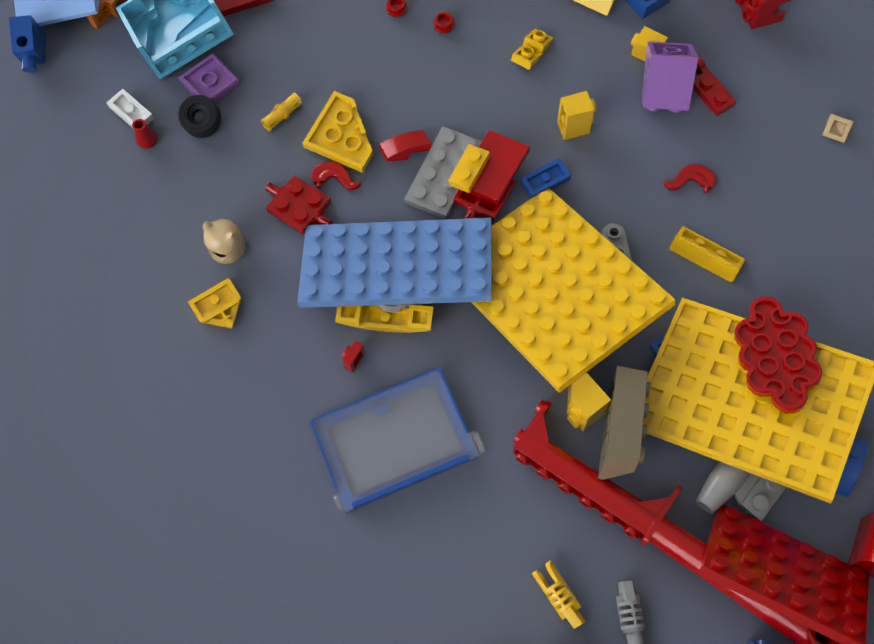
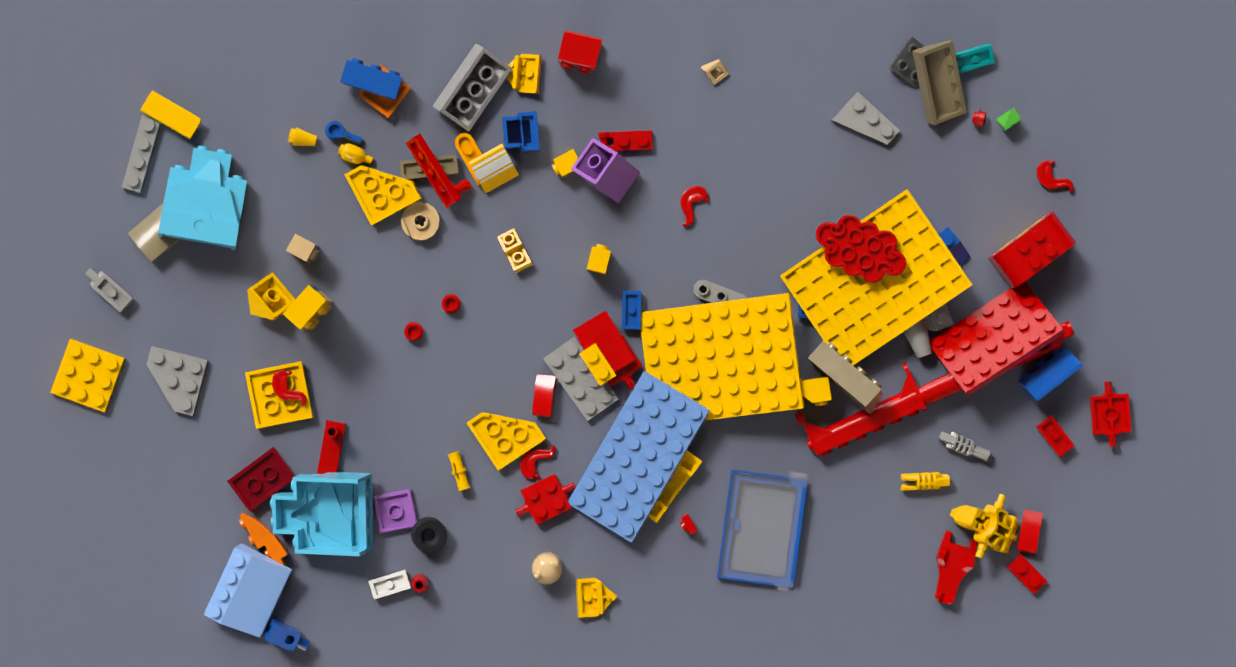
camera: 65 degrees left, 20 degrees up
(707, 254) = (754, 232): yellow slope -> none

